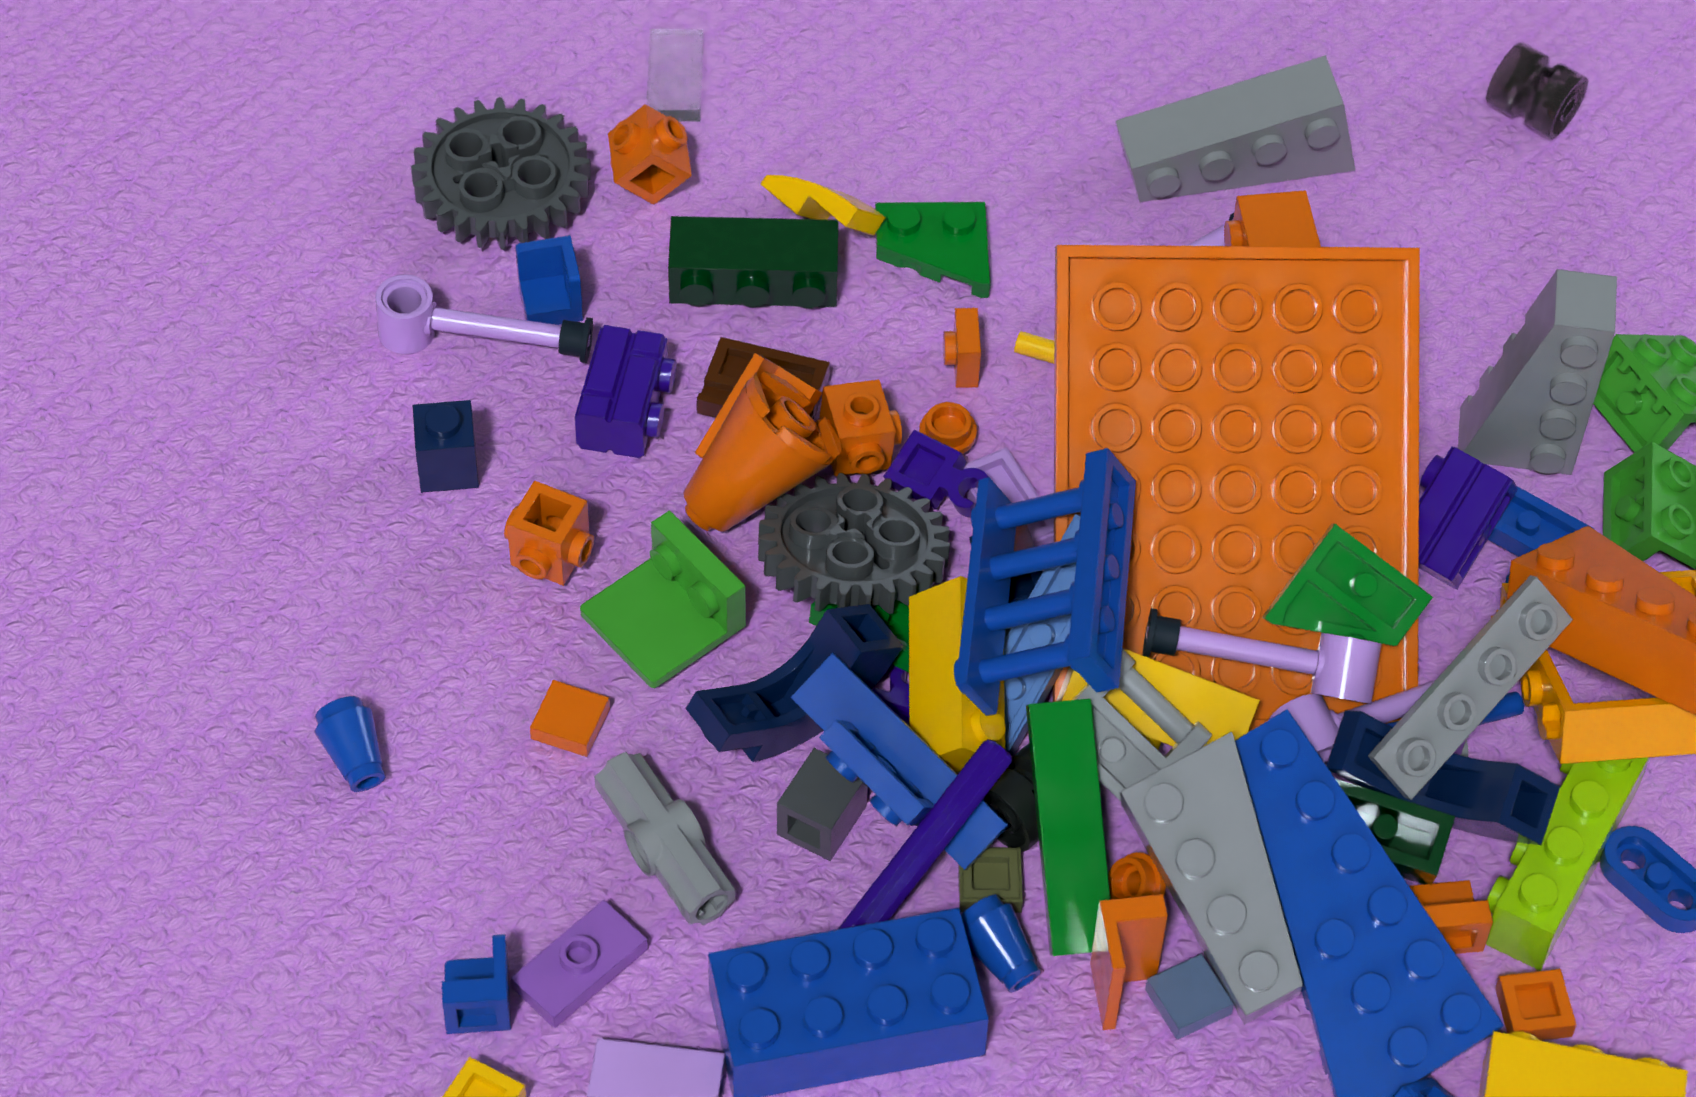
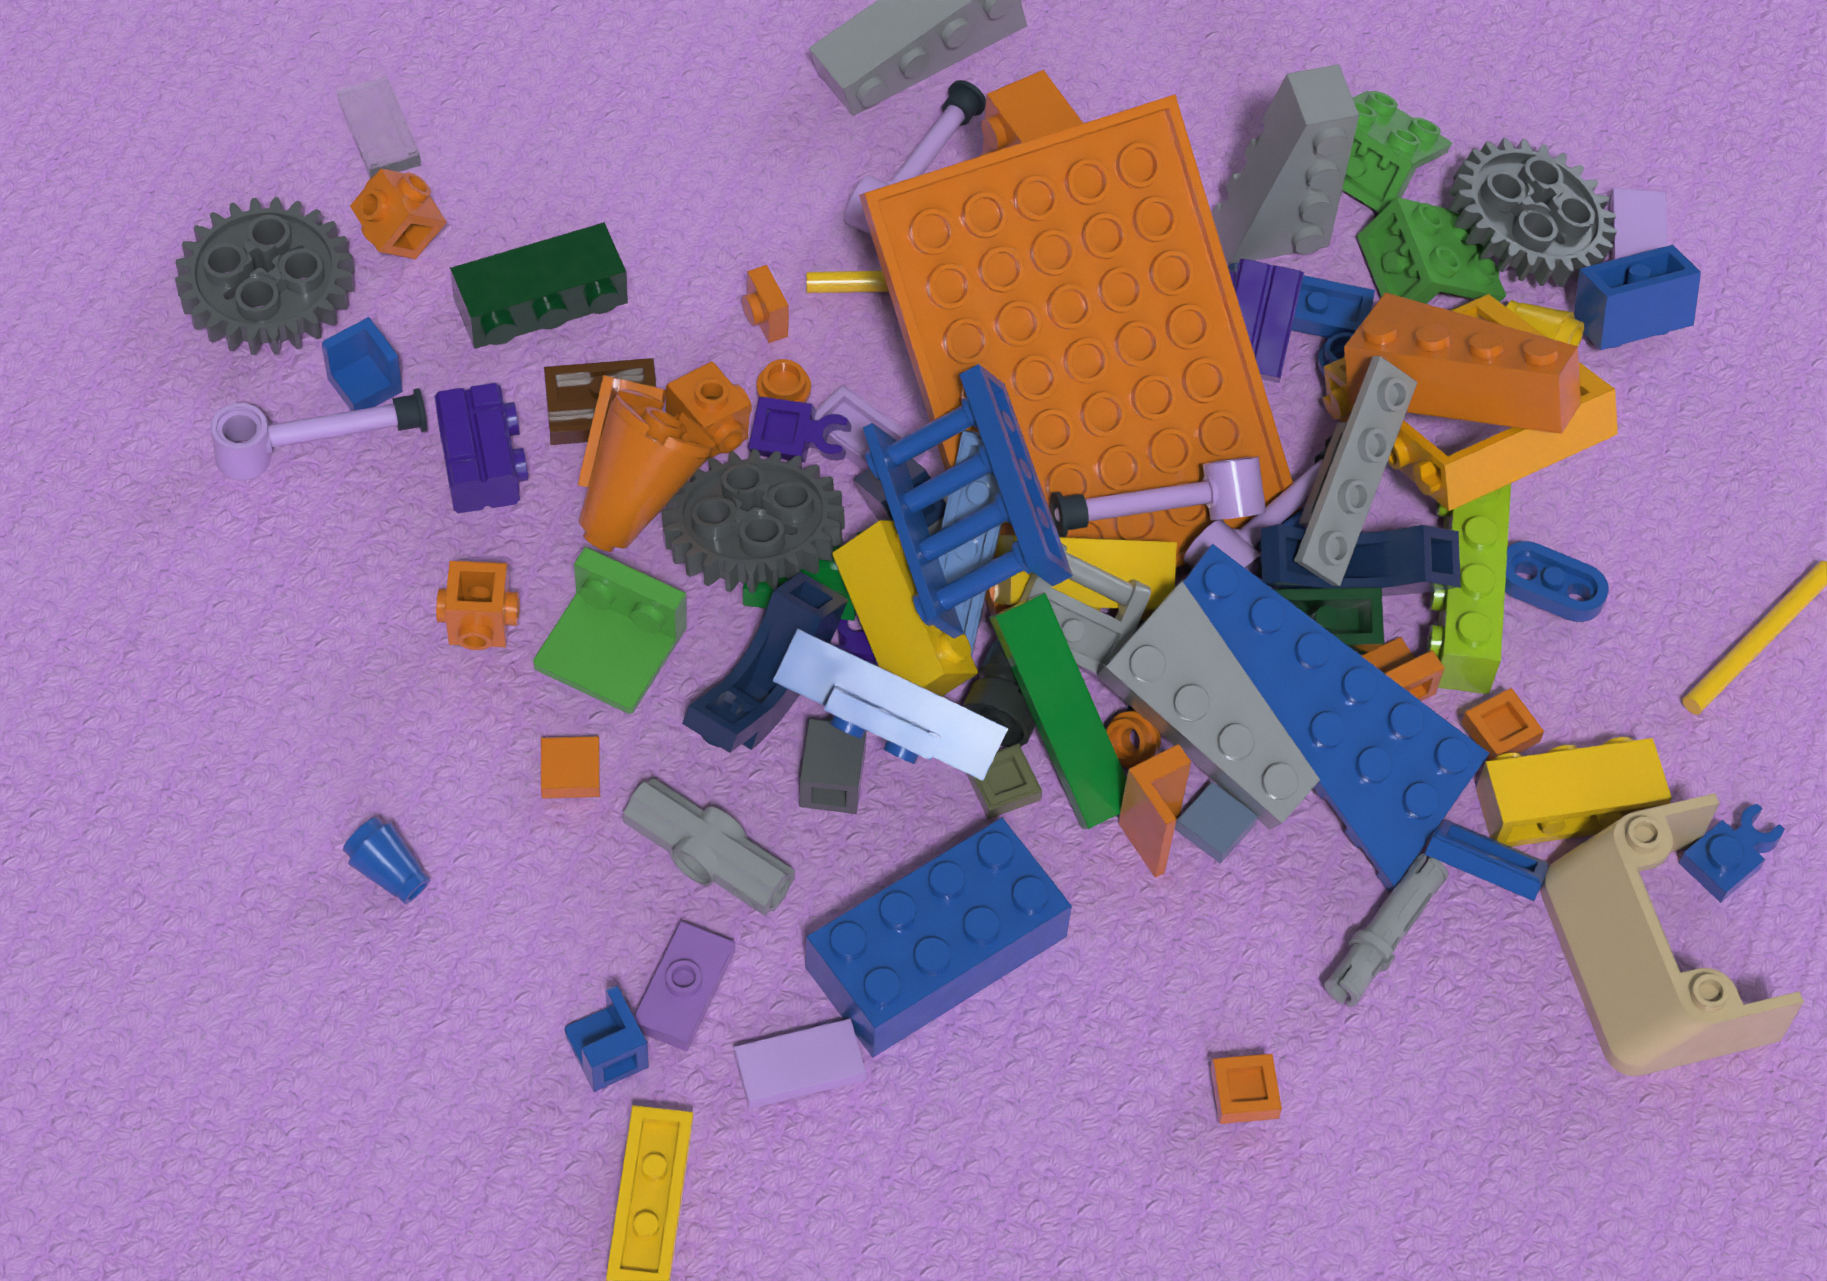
camera: 25 degrees left, 5 degrees up
(445, 446) = (341, 554): dark blue brick -> none
(820, 202) = (569, 209): yellow slope -> none
(931, 836) = (946, 766): dark purple axle -> none
(937, 240) = (691, 211): green wing -> none
(1000, 942) = (1043, 833): blue cone -> none
(1348, 593) = (1214, 421): green wing -> none

